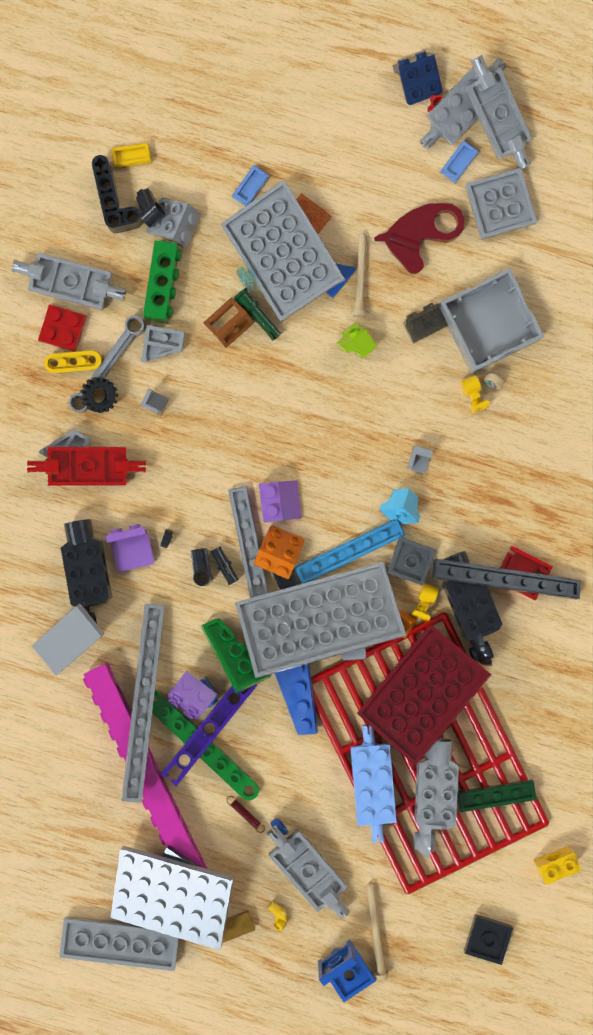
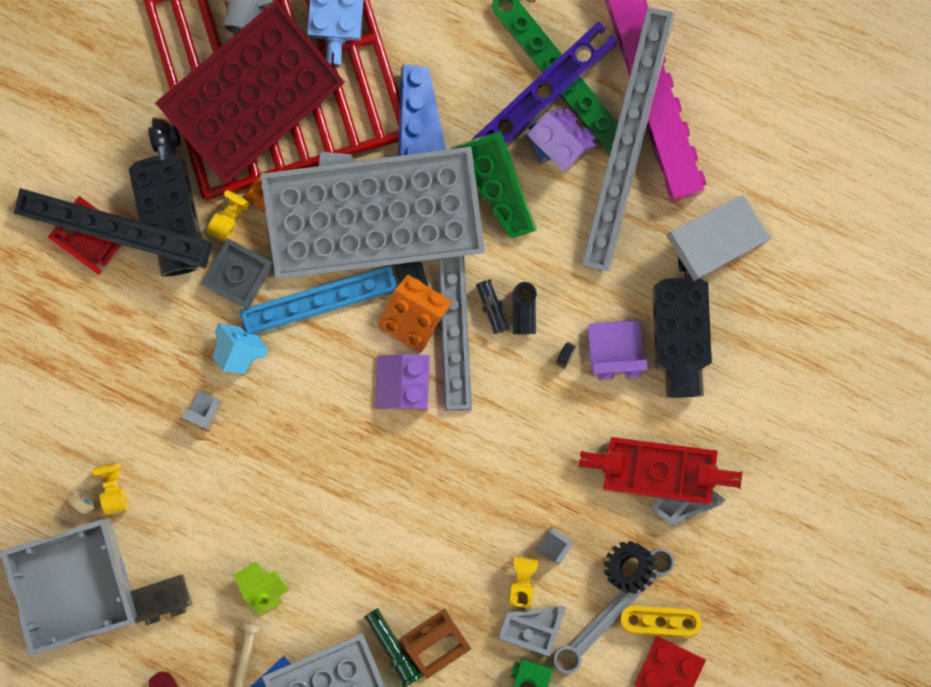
camera: 170 degrees left, 5 degrees down
(173, 367) = (521, 591): none -> yellow leg

